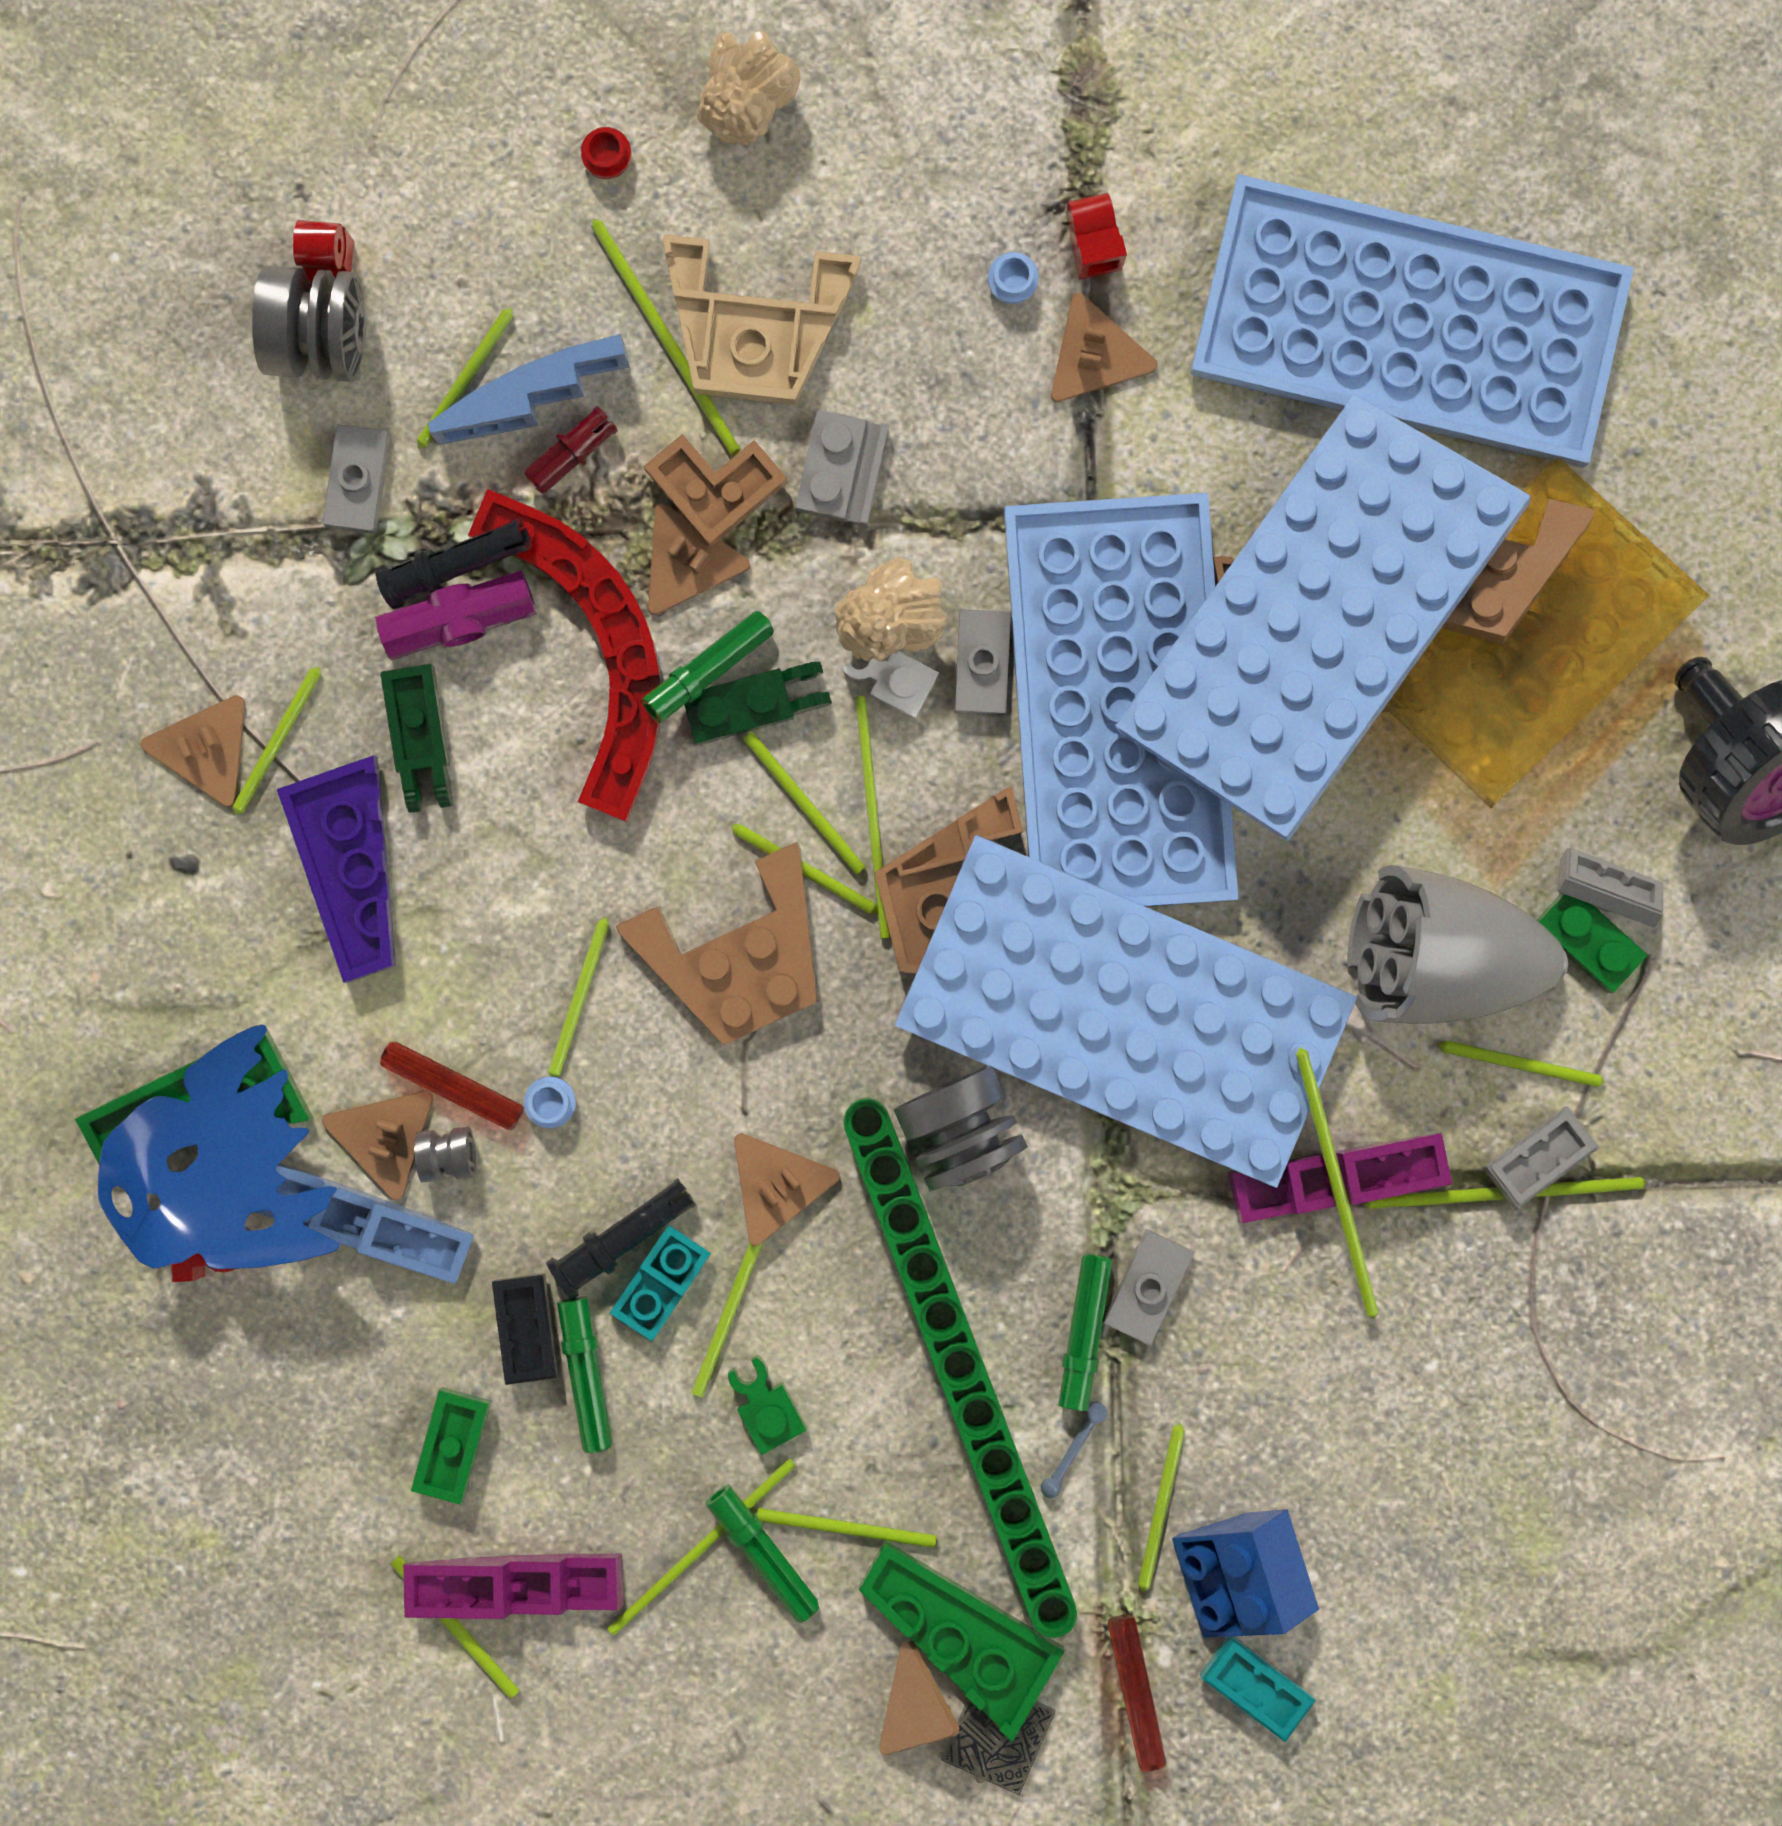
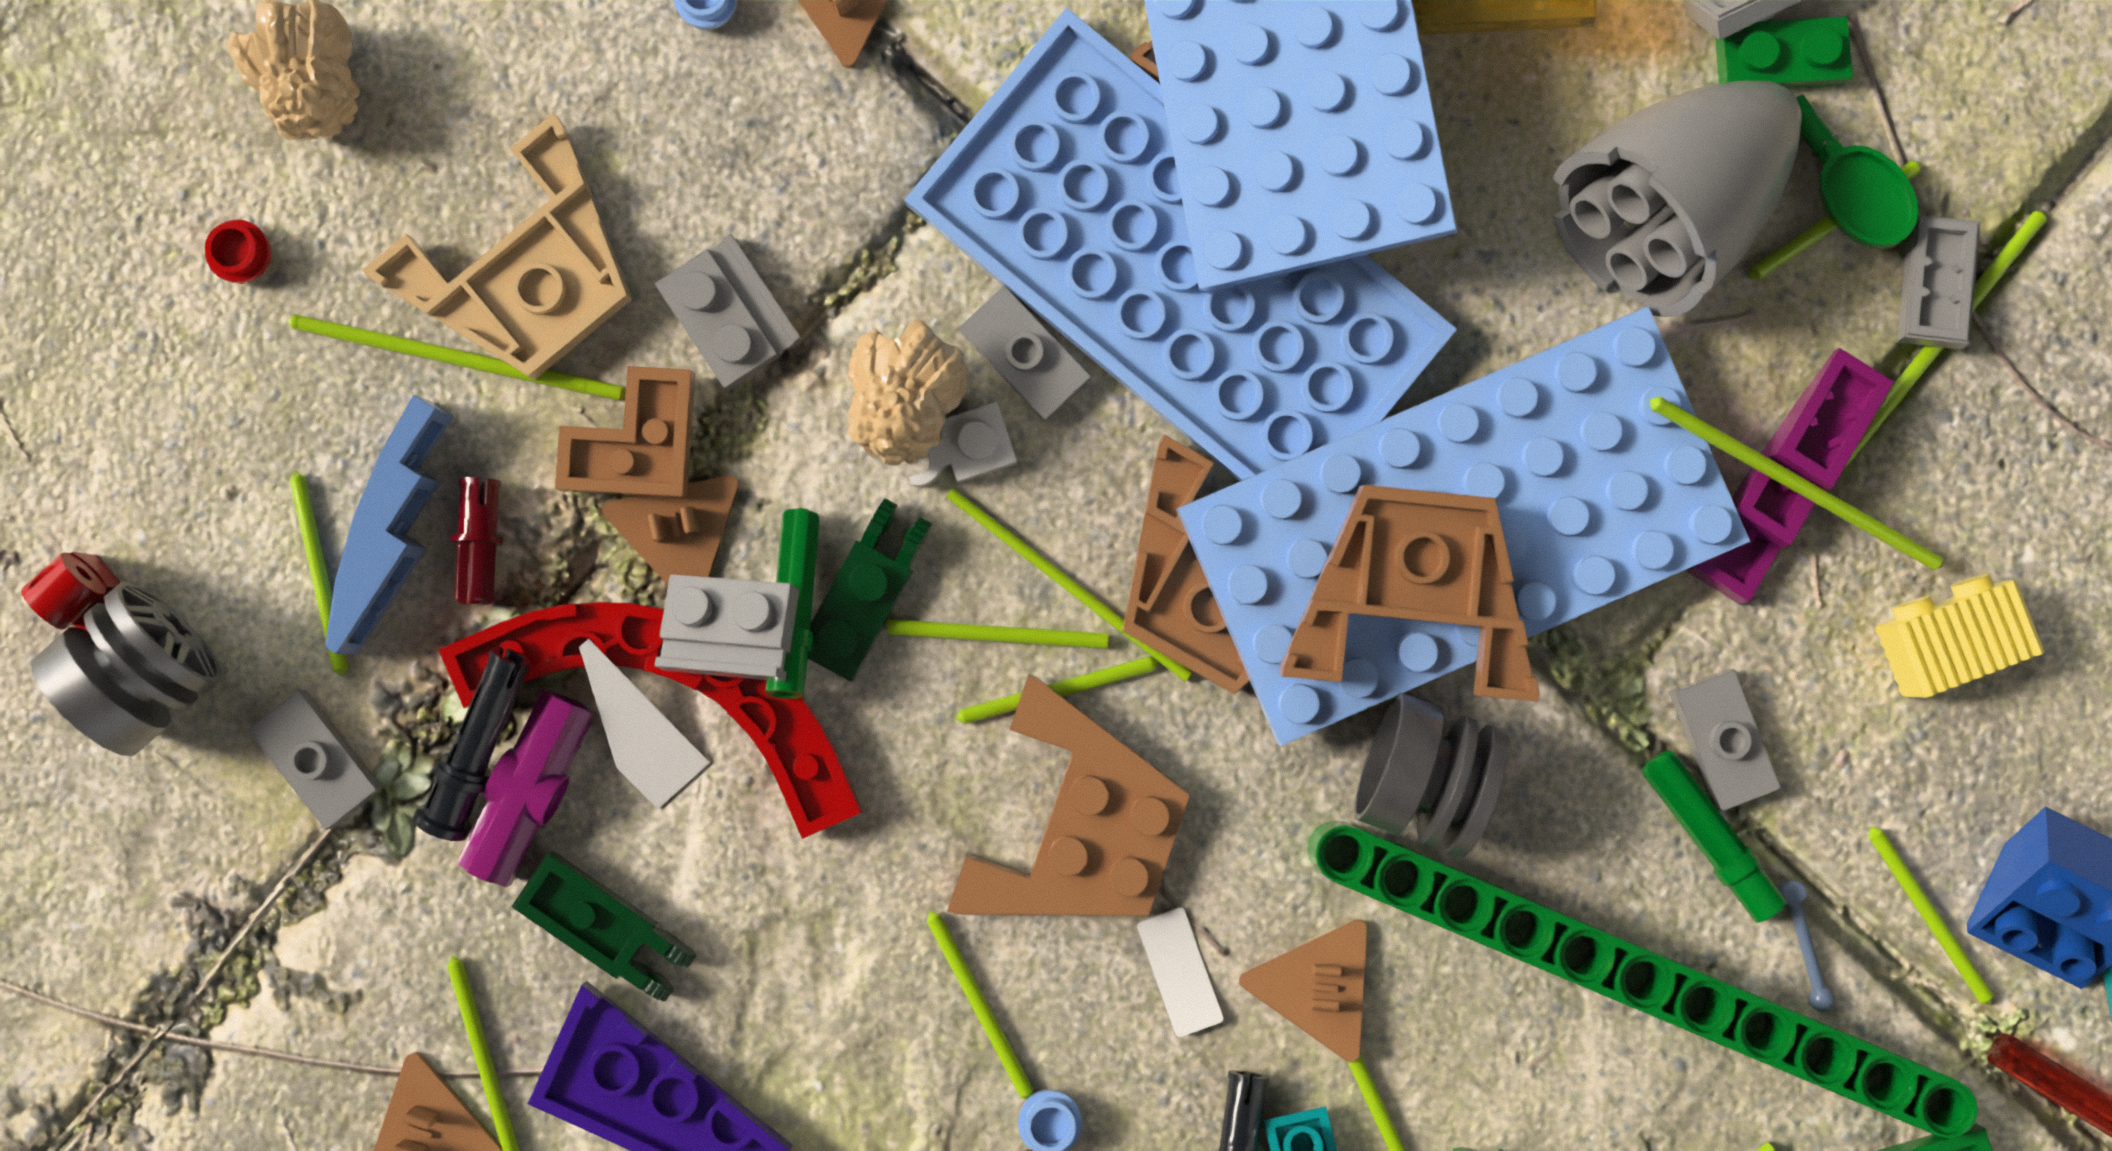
camera: 50 degrees left, 0 degrees up
(547, 653) = (639, 735): none -> white sticker
(658, 641) = (727, 627): none -> light grey plate
(708, 1096) = (1180, 972): none -> white sticker
(1077, 1003) = (1422, 562): none -> medium nougat wing
(1339, 1366) = (1959, 637): none -> light yellow brick
(1552, 1056) = (1860, 186): none -> green piece

